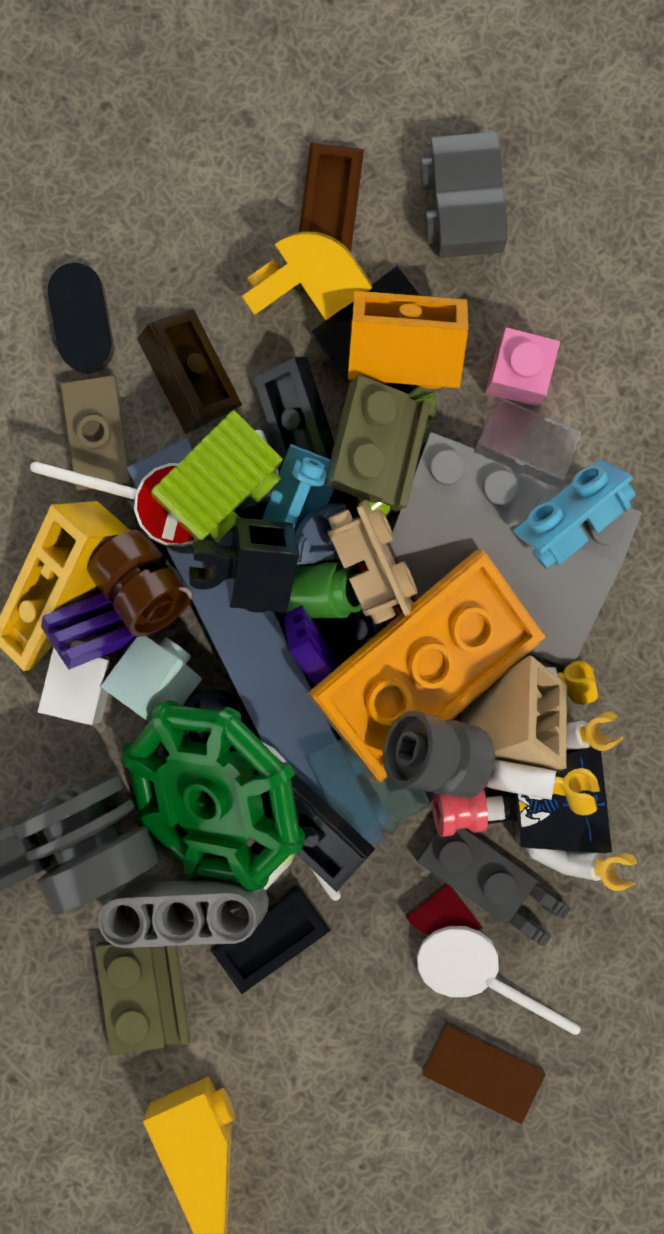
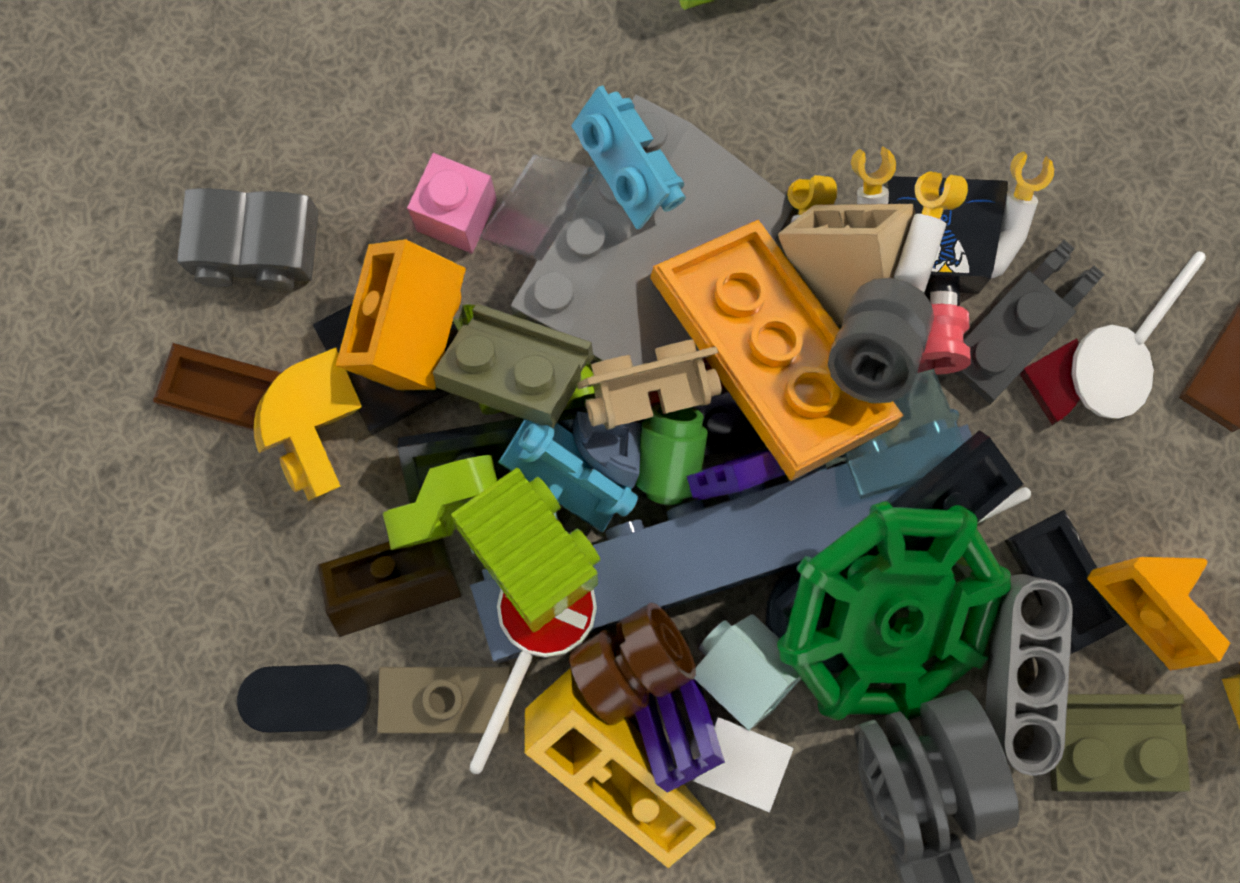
camera: 80 degrees left, 10 degrees down
(252, 401) = (441, 494): none -> lime piece
(256, 565) = (636, 517): black brick -> none
(256, 1015) = (1156, 605): none -> light orange slope

